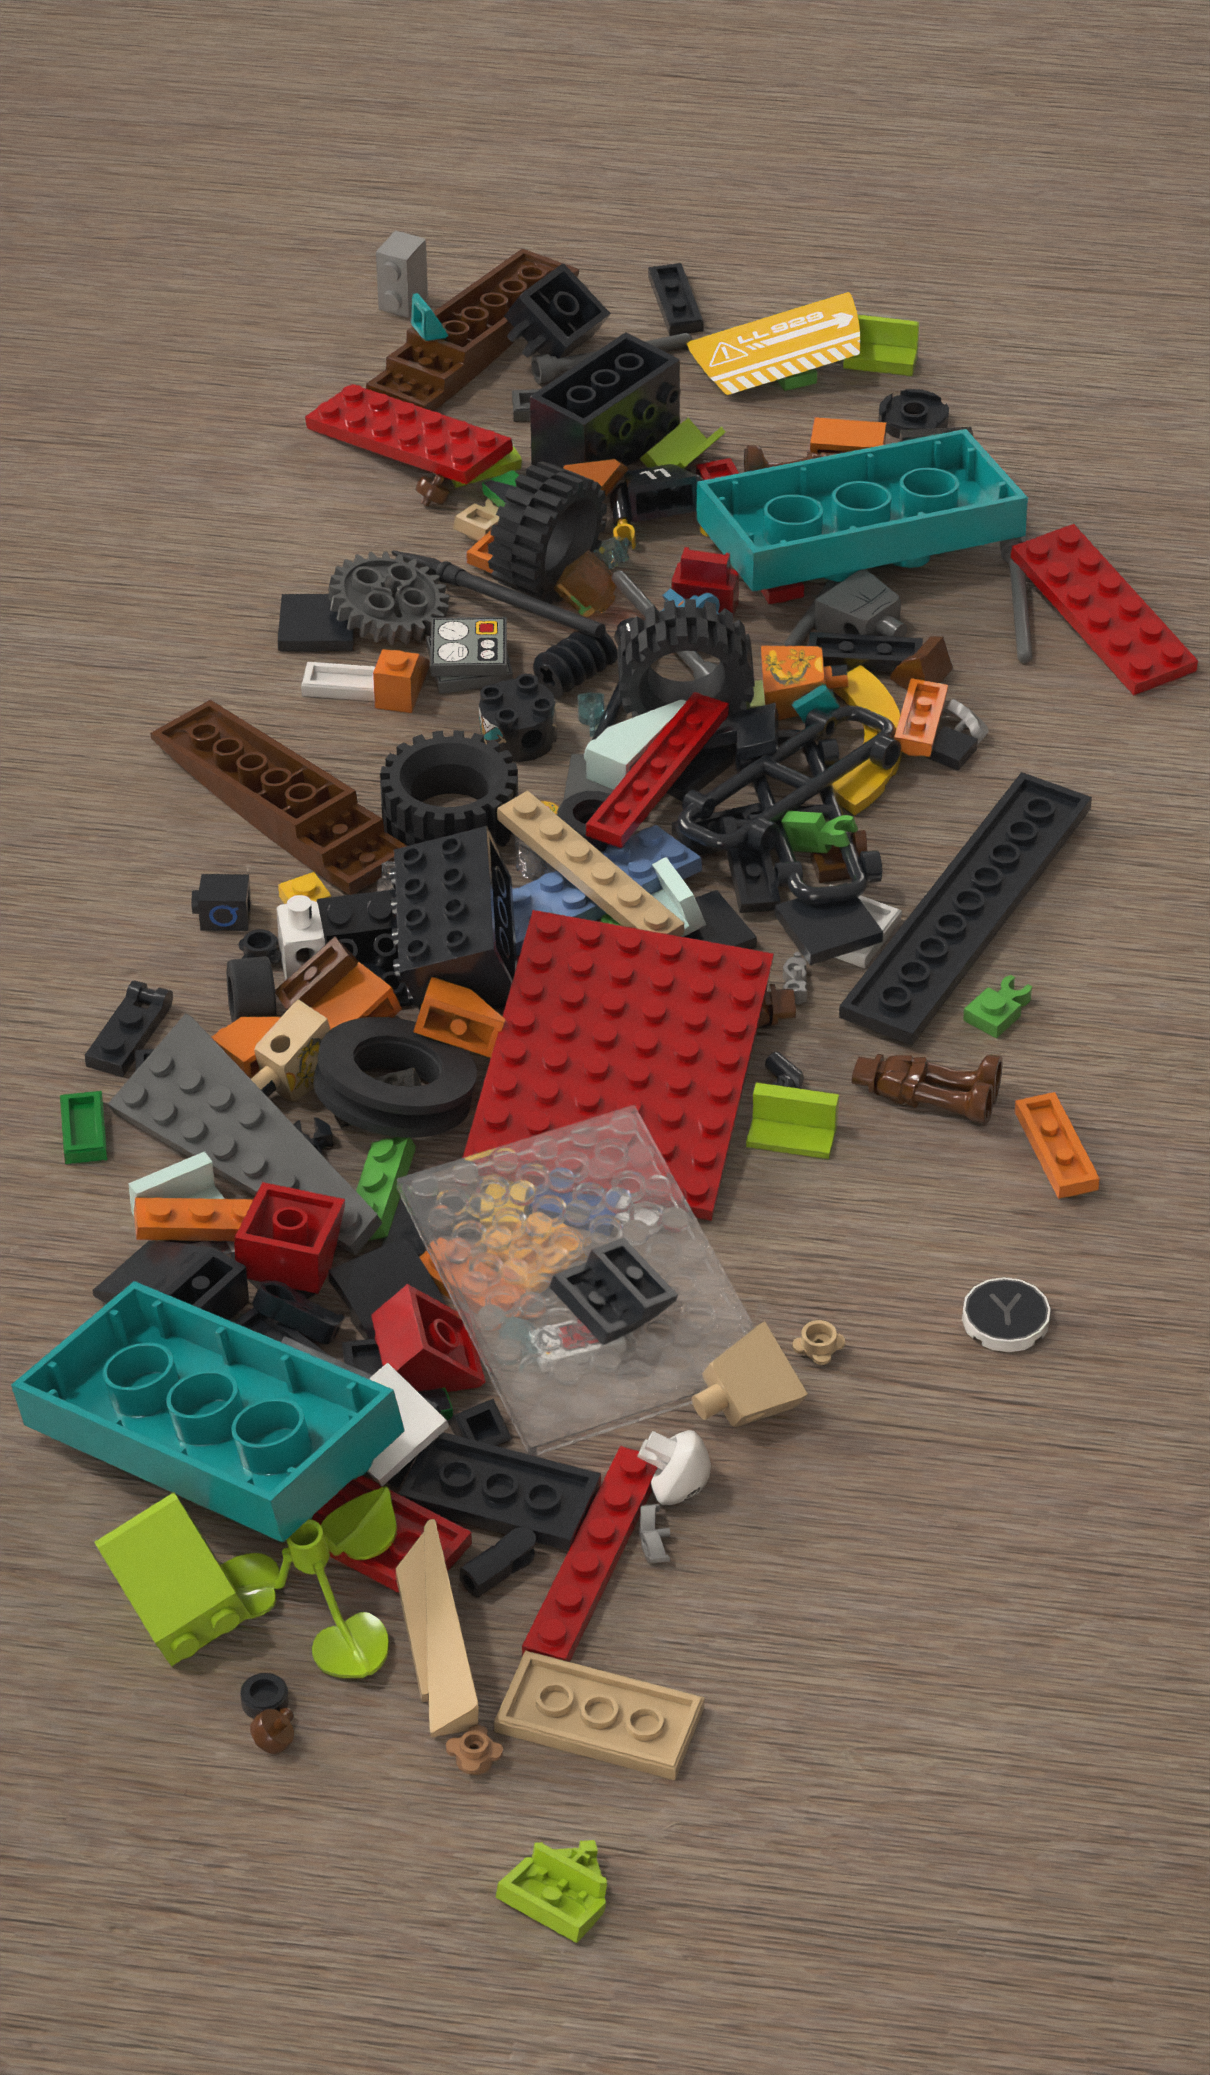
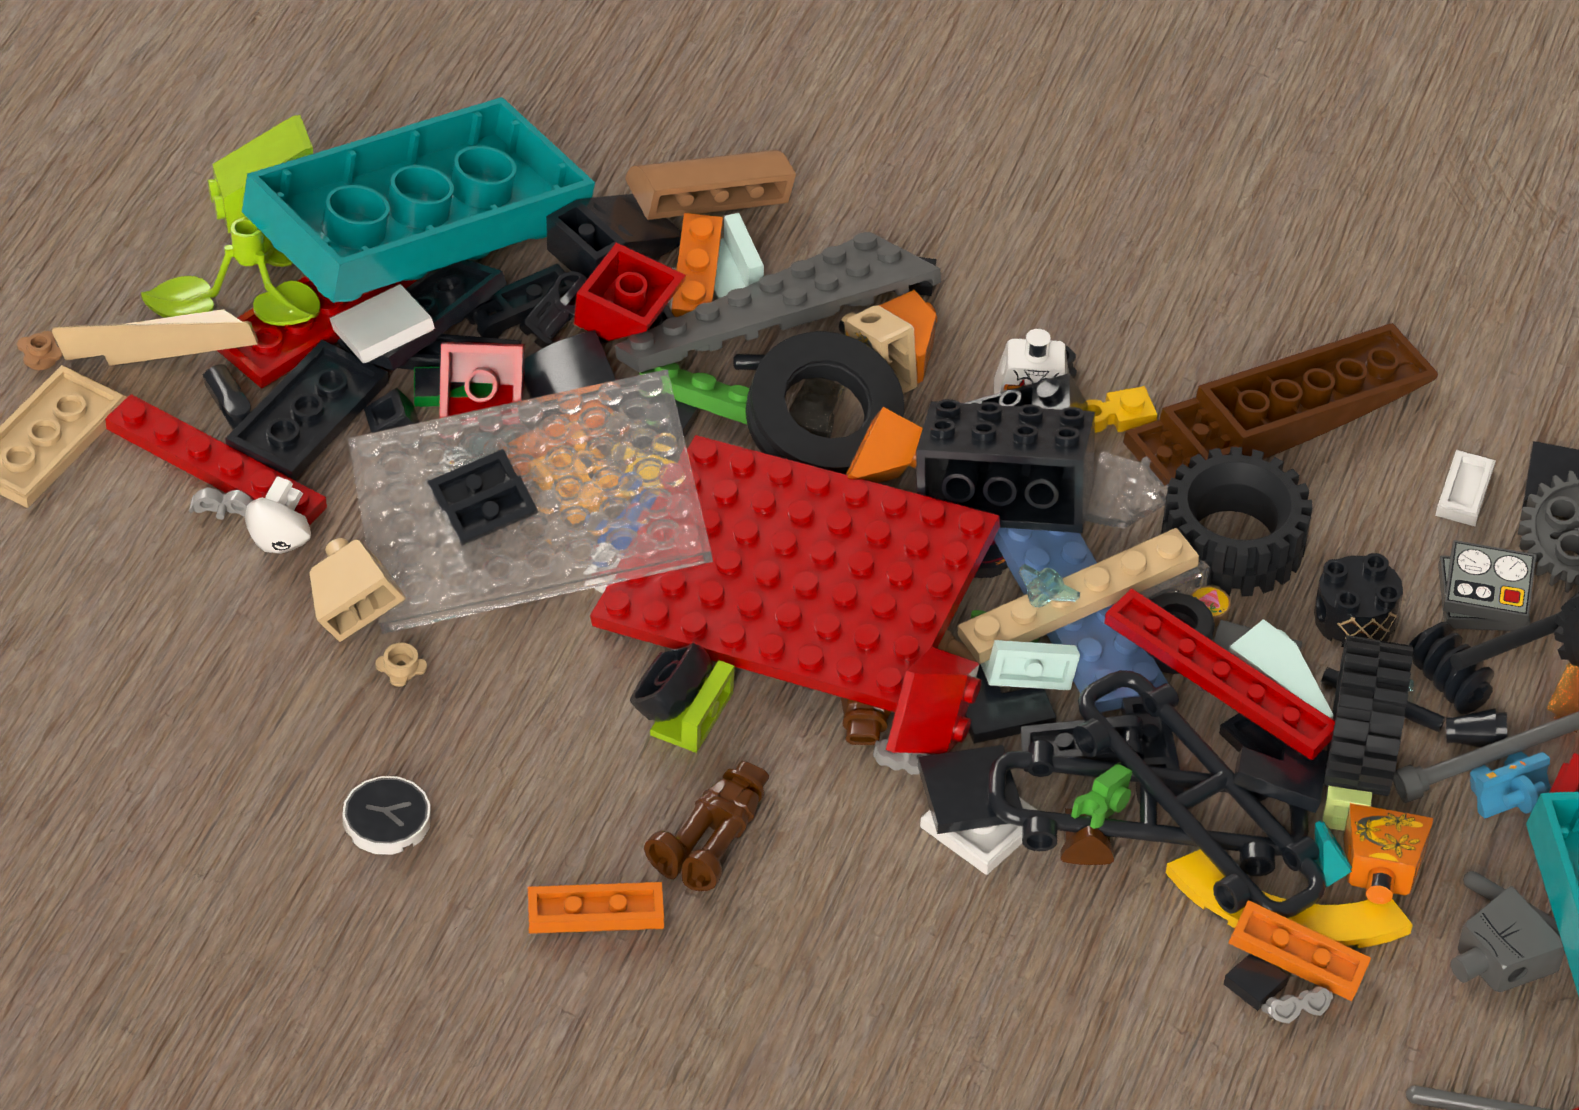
camera: 100 degrees right, 5 degrees up
(73, 1222) = (711, 184): none -> medium nougat brick
(83, 1127) = (850, 218): green tile -> none
(128, 1029) = (972, 262): black plate -> none
(223, 902) = (1122, 341): black brick -> none
(251, 988) = (975, 332): black tyre -> none
(262, 1693) = (155, 241): black tile -> none
(273, 1730) = (112, 234): reddish brown piece -> none
(317, 975) = (966, 364): reddish brown panel -> none
(358, 996) = (927, 382): orange brick -> none
(399, 680) = (1452, 515): orange slope -> none
(612, 869) = (1046, 586): none -> clear light blue piece
(762, 926) = (934, 704): none -> red slope
(784, 1070) = (763, 721): black arm -> none
(784, 1126) = (671, 683): none -> black piece
(870, 651) = (1434, 934): black plate -> none
(927, 664) = (1394, 983): reddish brown tile -> none
(965, 909) = (985, 927): black plate -> none
(998, 1010) = (821, 914): bright green plate -> none

